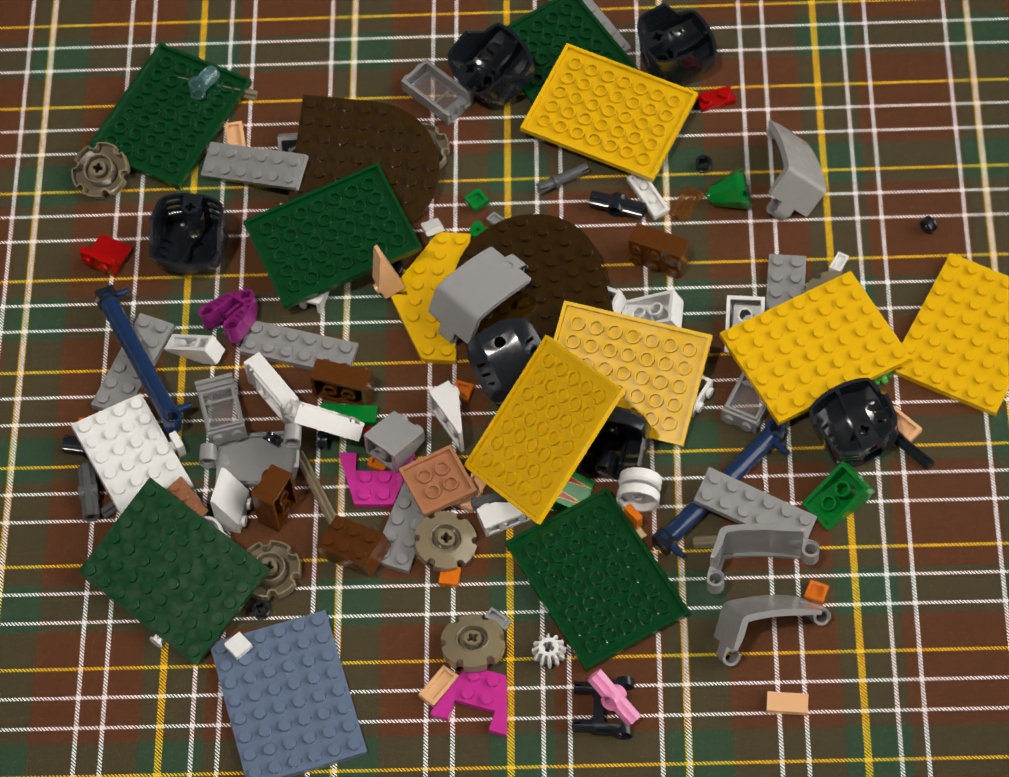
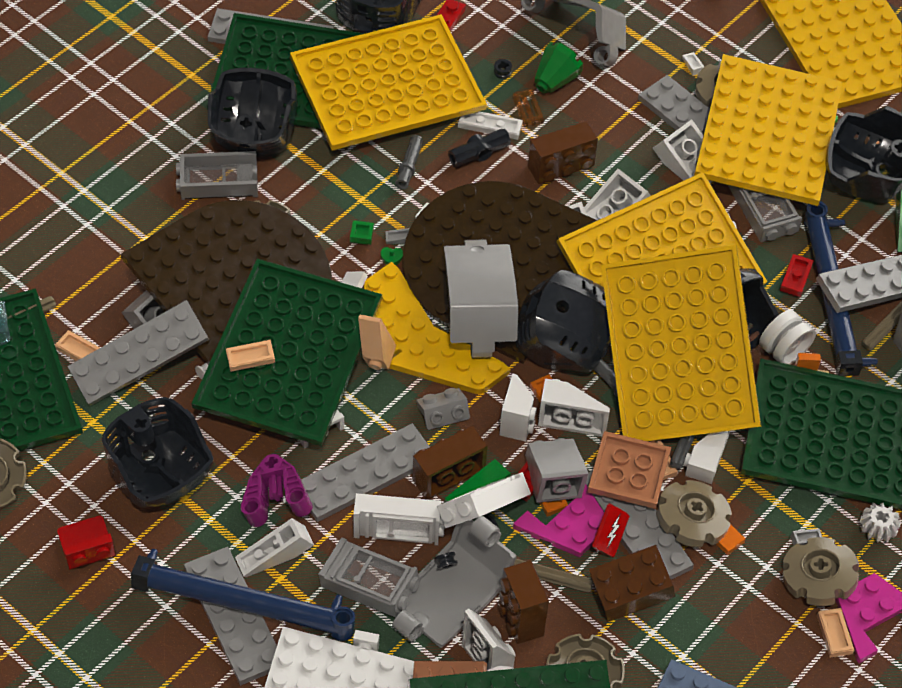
camera: 55 degrees left, 5 degrees down
(304, 219) = (250, 355): none -> light nougat tile
(382, 505) = (610, 531): none -> red slope
(387, 350) = (443, 408): none -> light grey bracket
(417, 384) = (517, 411): none -> white slope
(711, 457) = (796, 275): none -> red plate

